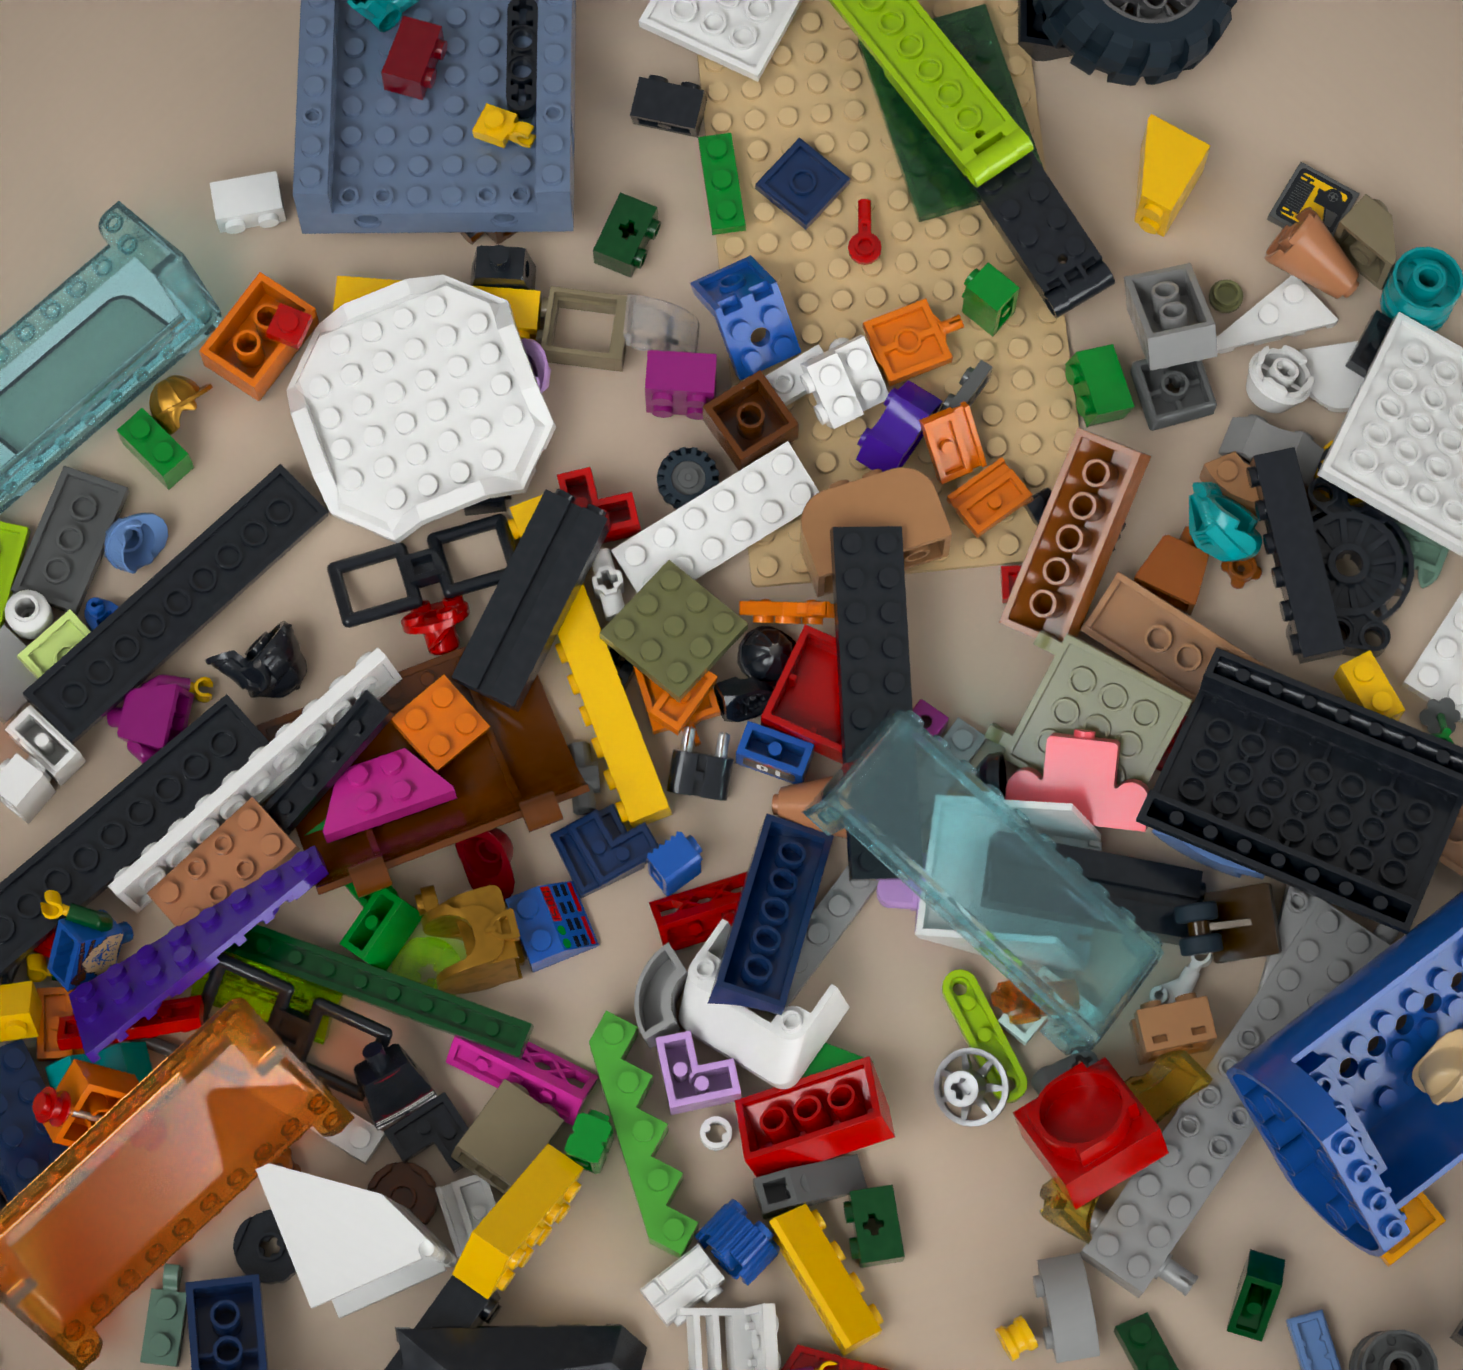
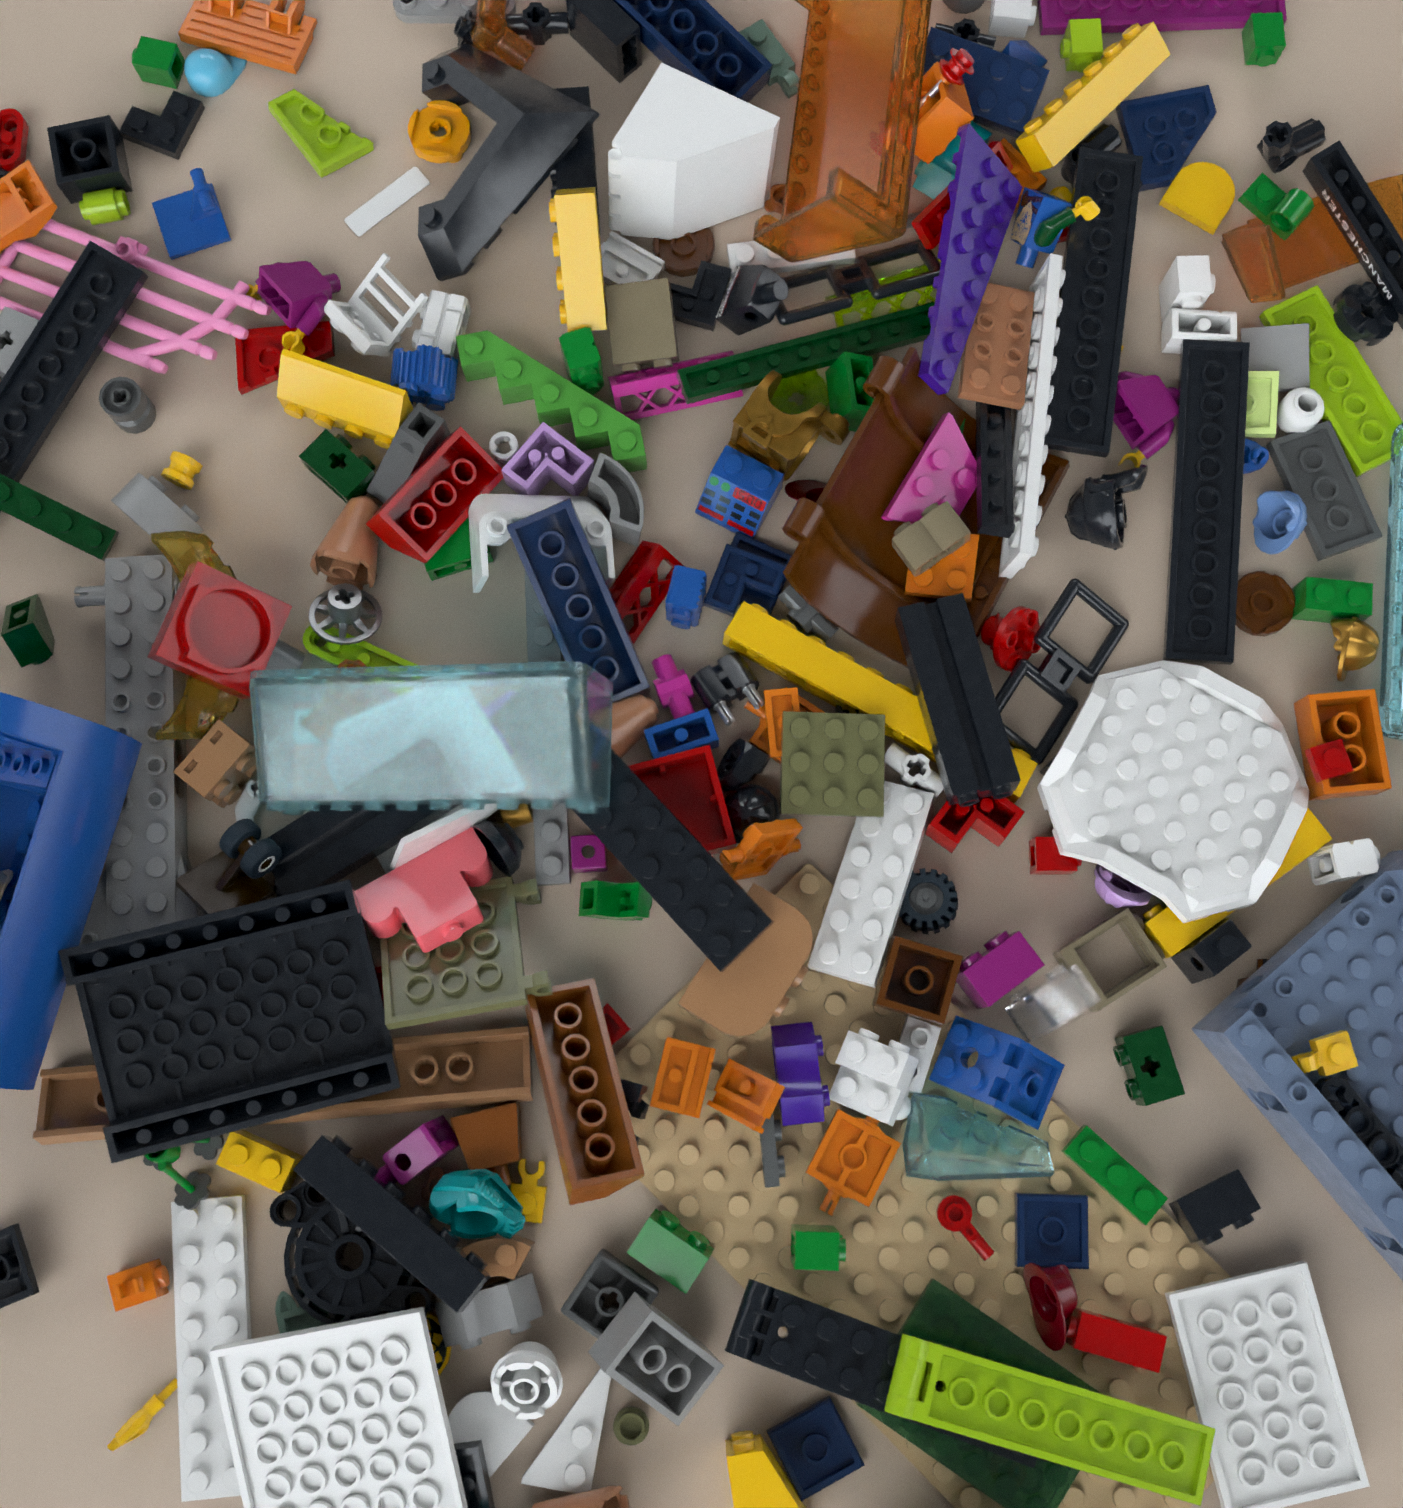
camera: 140 degrees right, 5 degrees up
(205, 494) = (1263, 603): none -> reddish brown tile
(345, 251) = (1343, 861): none -> white brick
(437, 740) = (930, 538): none -> dark tan brick
(566, 438) = (1046, 859): none -> red brick
(745, 805) = (672, 686): none -> dark pink axle
(819, 290) = (958, 1145): none -> clear light blue wedge
(822, 79) = (1115, 1339): none -> red brick
(846, 135) = (1051, 1300): none -> dark red piece
(922, 1140) = (350, 546): none -> nougat cone
(934, 672) = (614, 901): none -> green brick
(1101, 180) = (815, 1448): none -> dark blue tile
(1174, 511) = (529, 1193): none -> yellow plate
(1237, 601) = (418, 1151): none -> magenta torso

